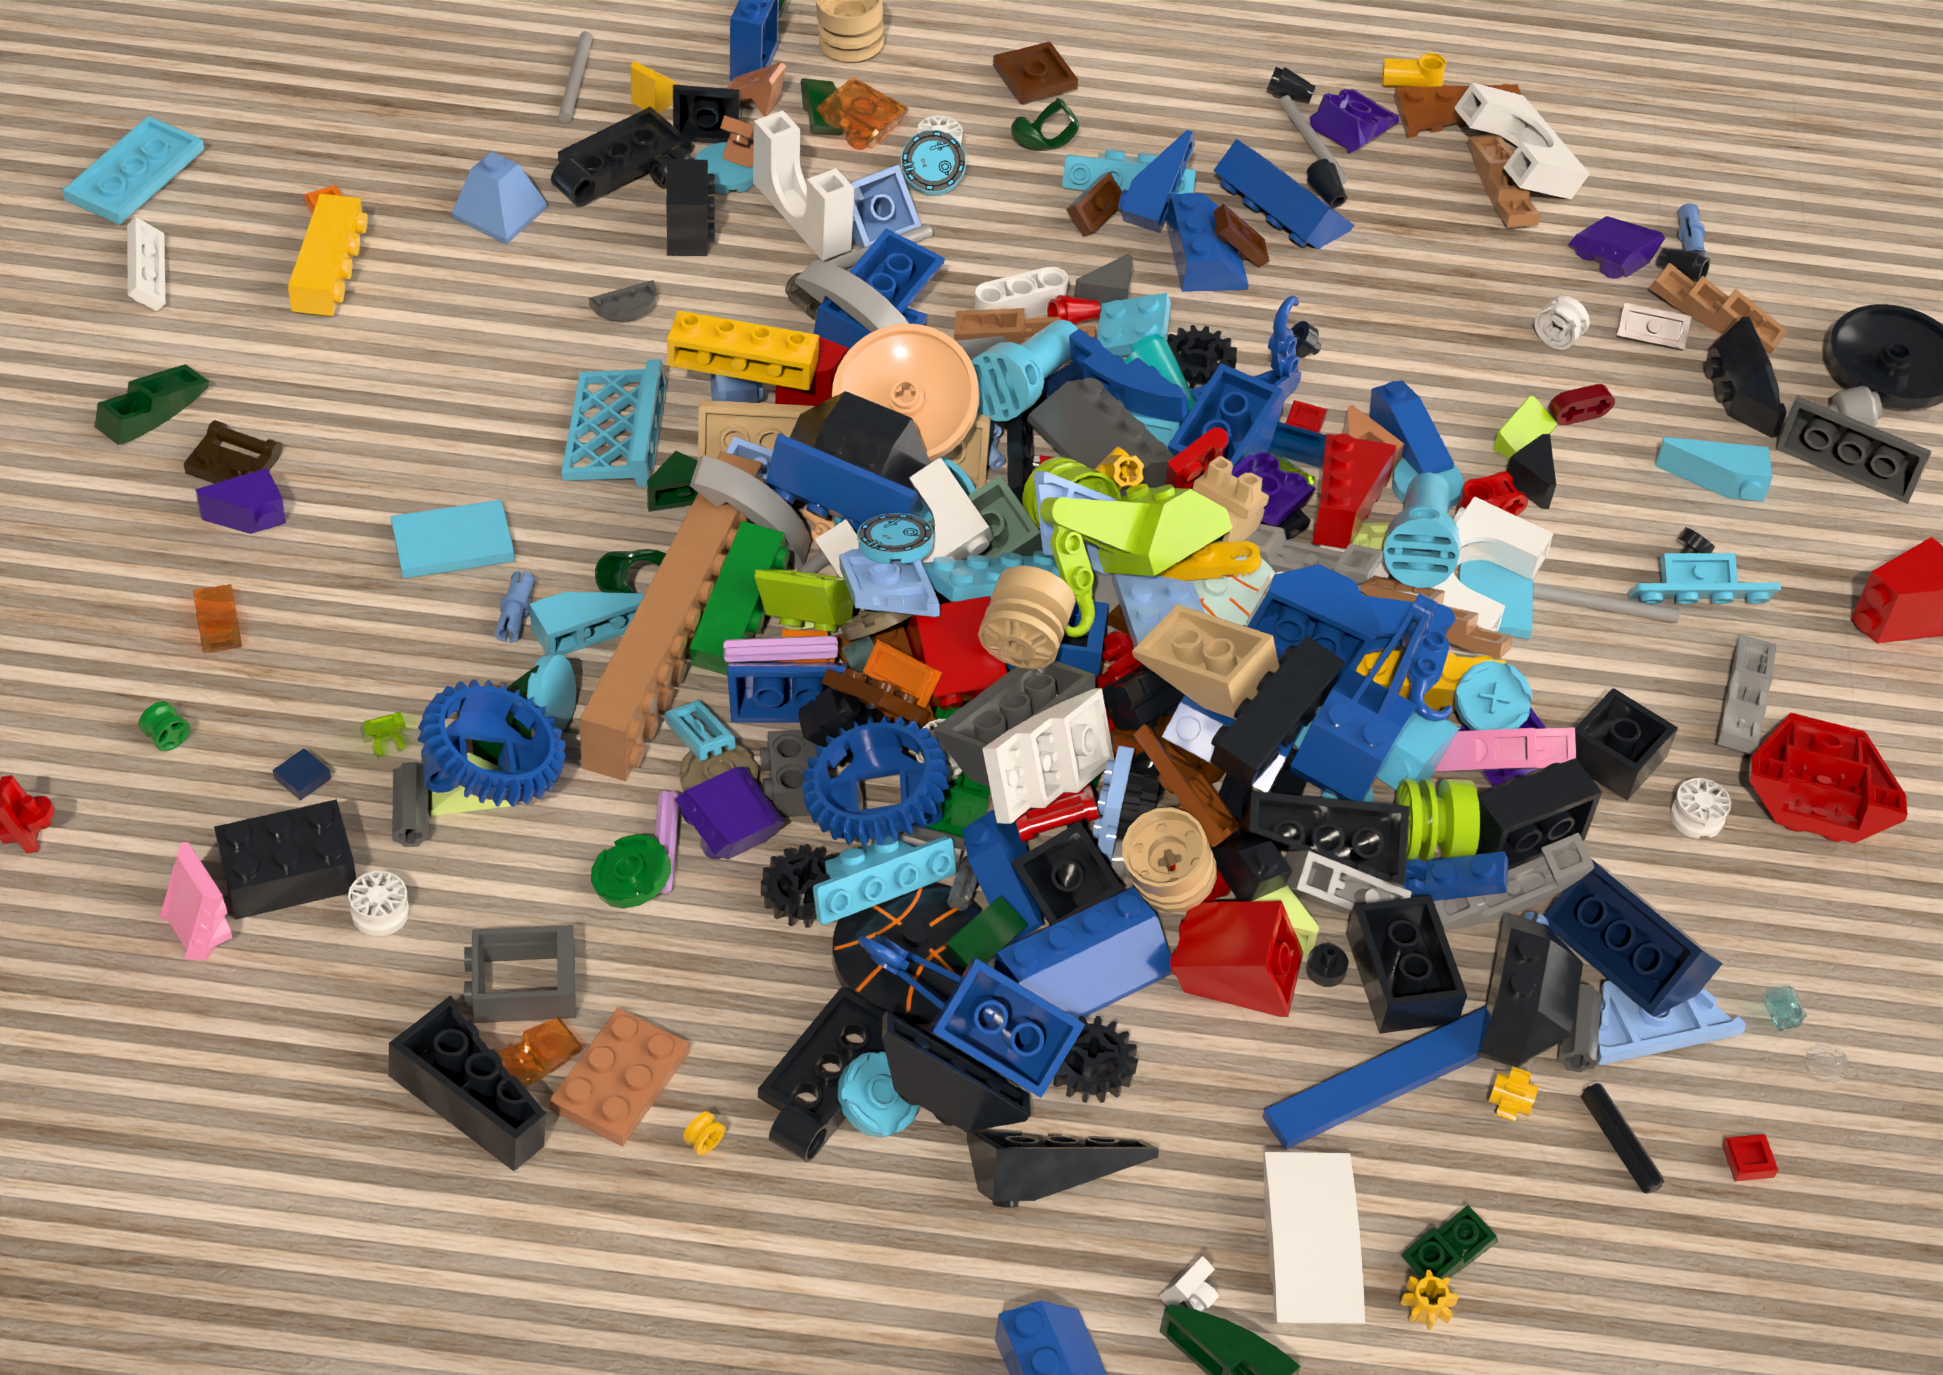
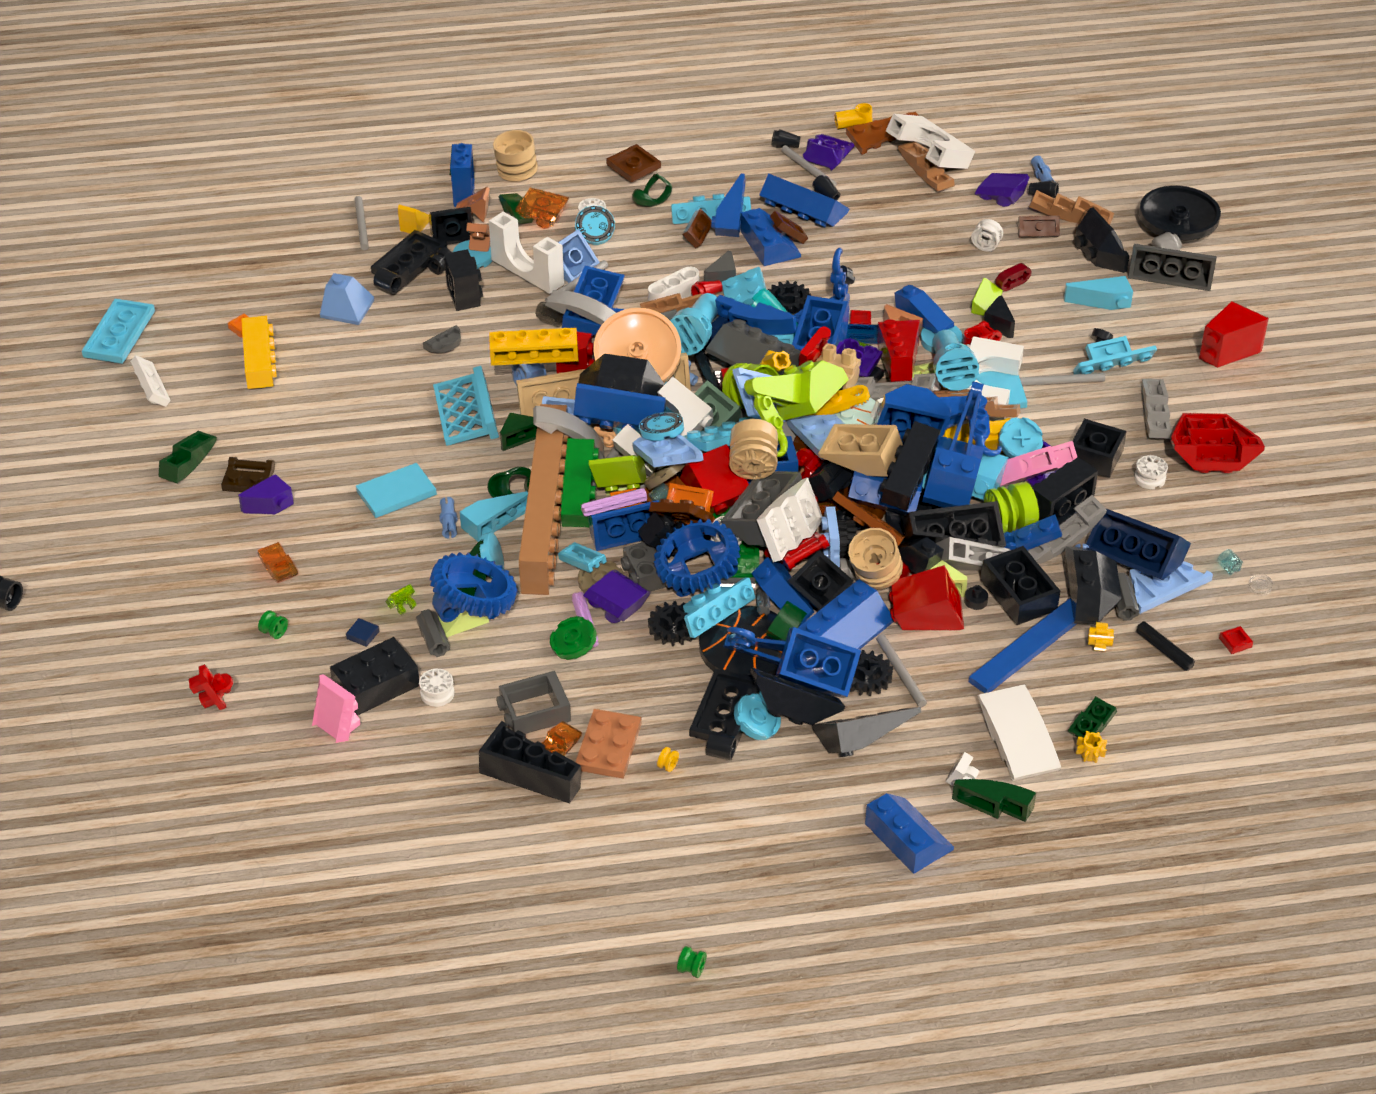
camera: 10 degrees left, 5 degrees down
(1155, 1068) = (901, 670): none -> light grey bar

